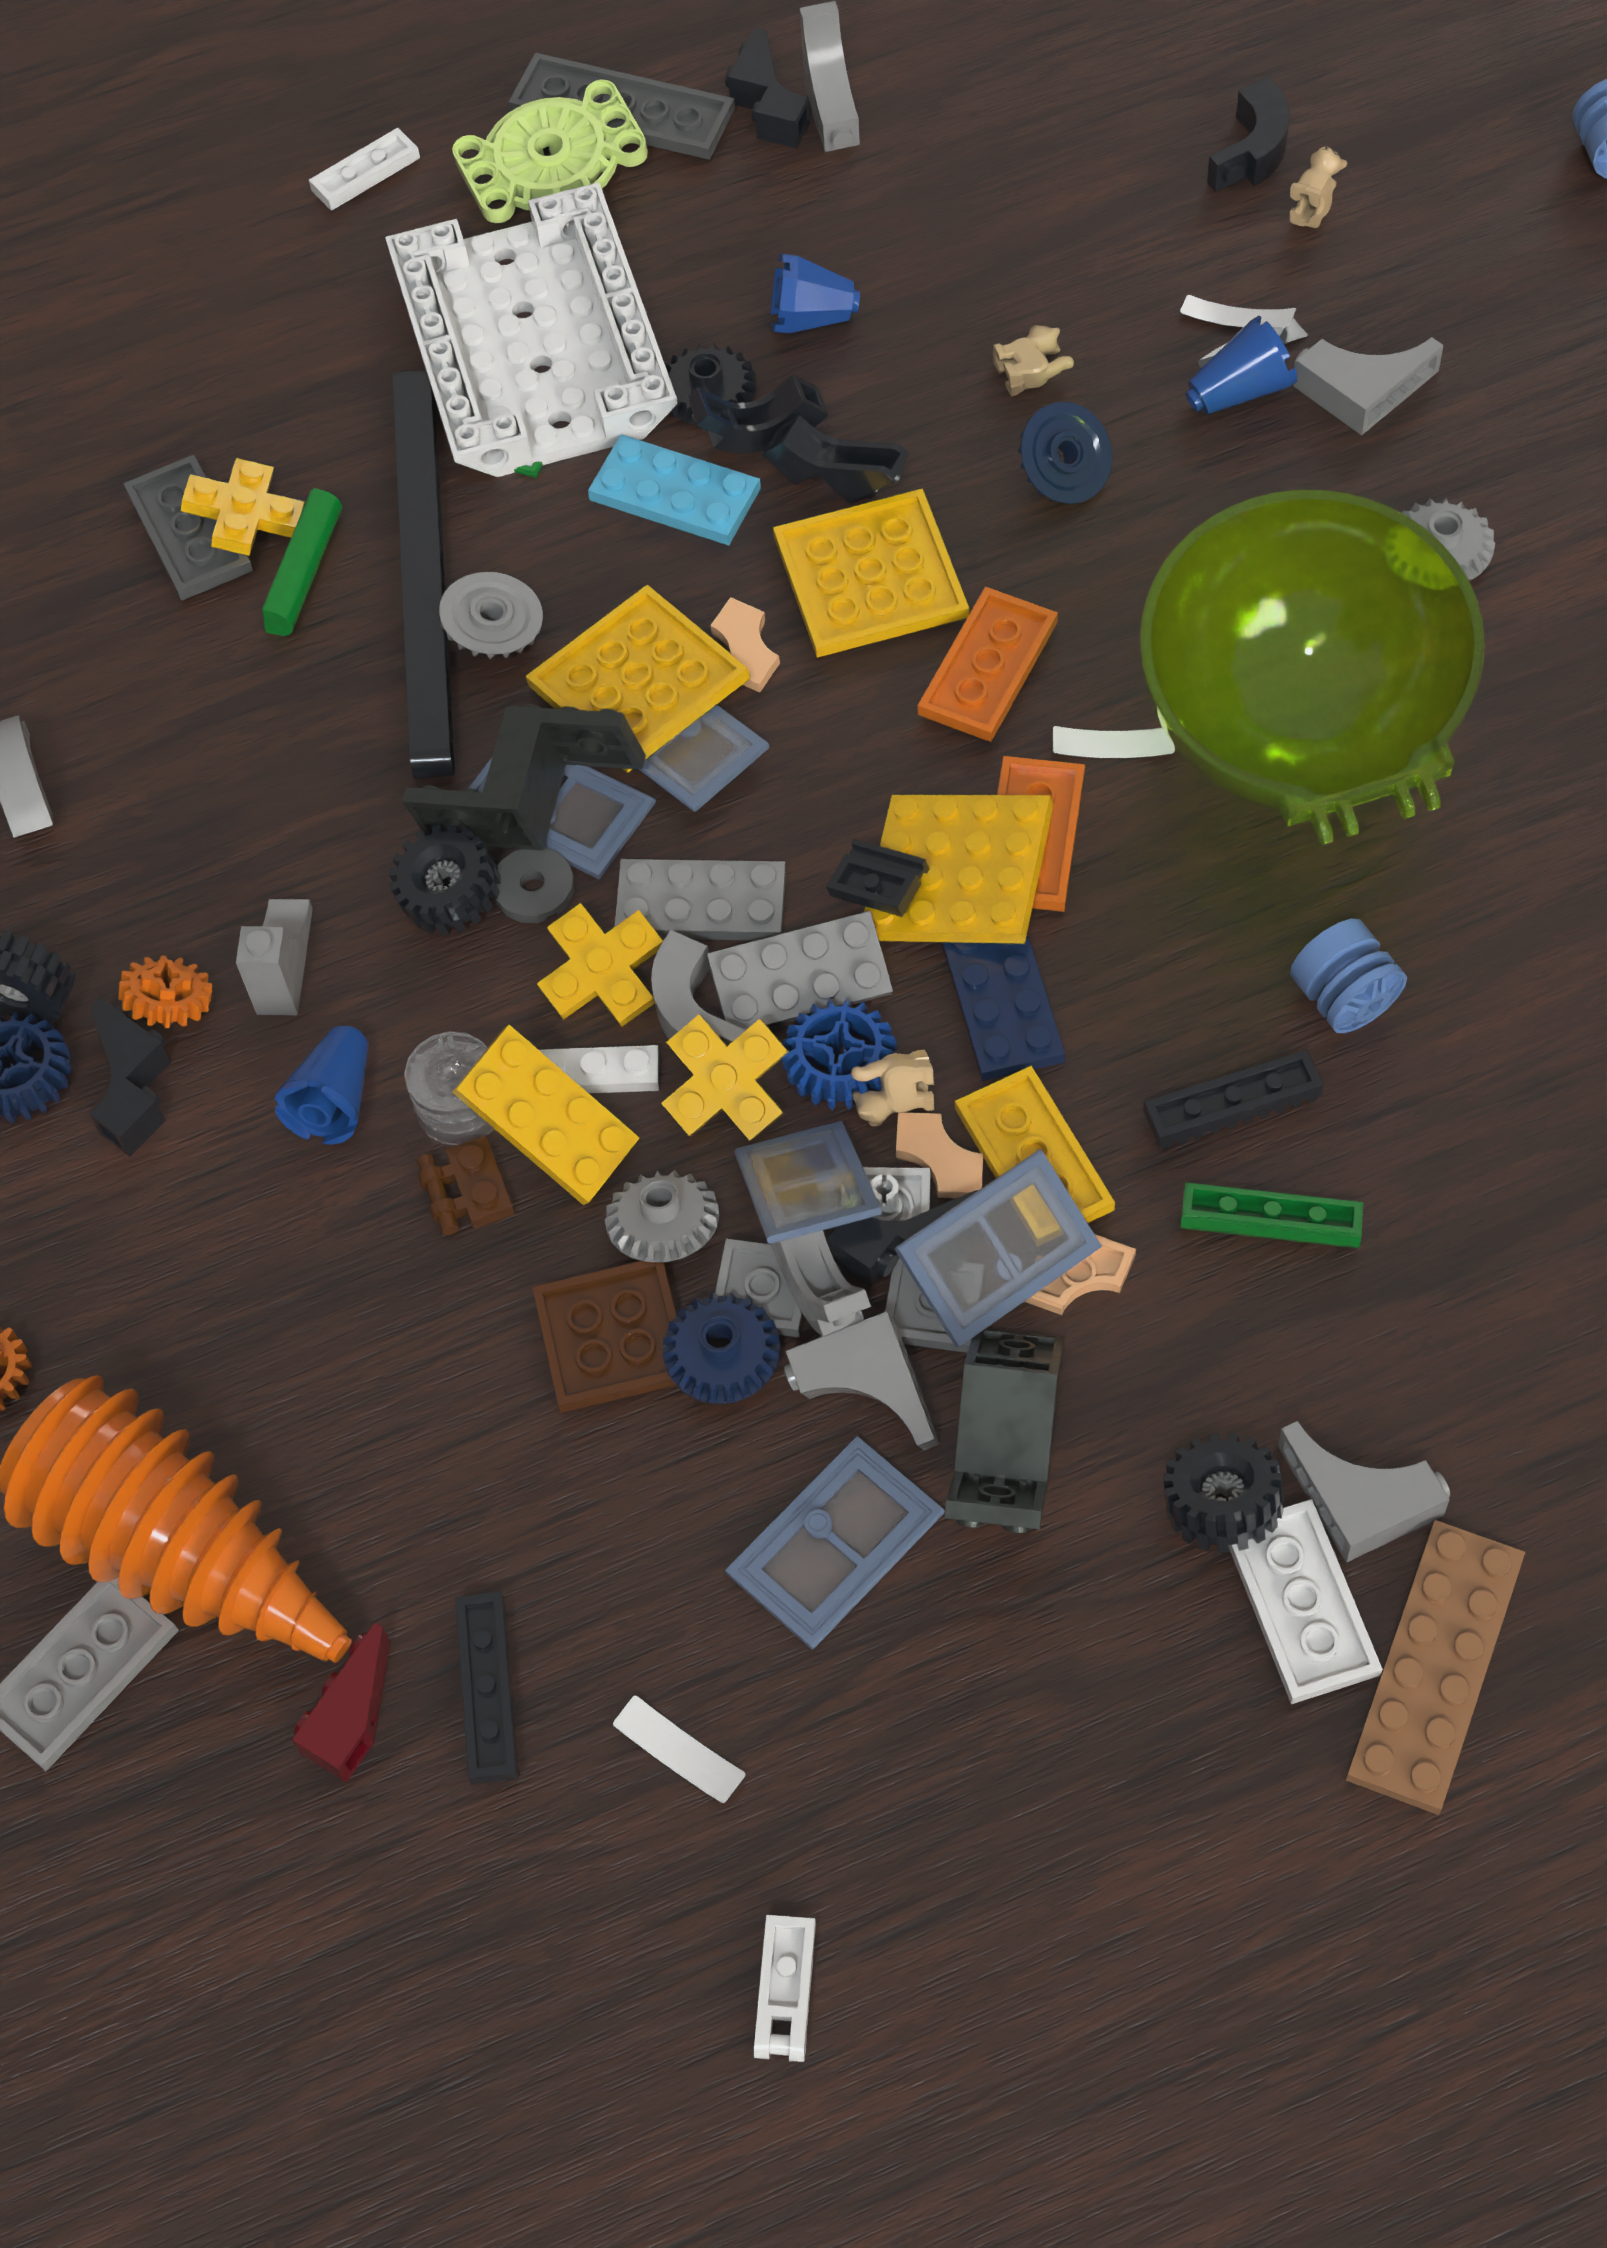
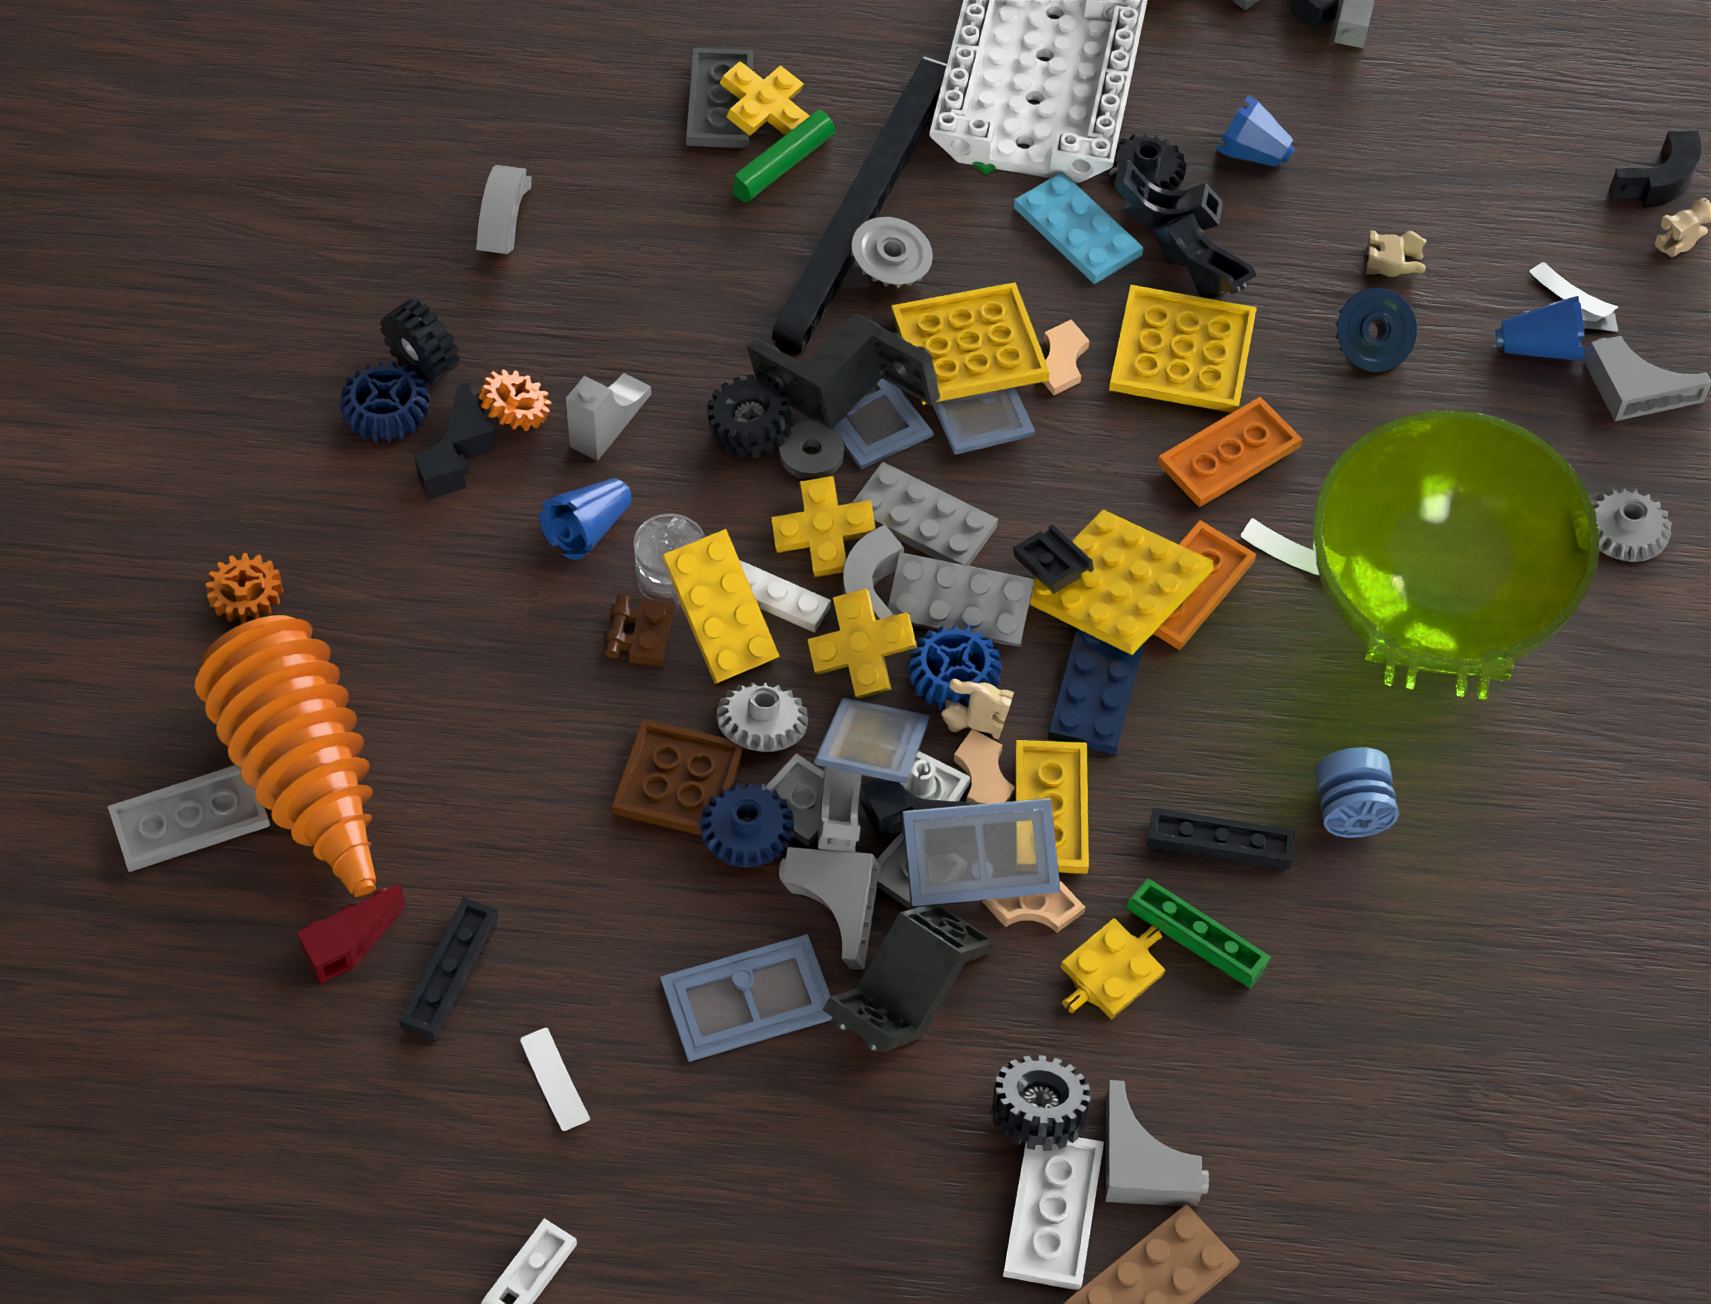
camera: 20 degrees right, 5 degrees down
(1204, 1302) = (1112, 969): none -> yellow plate

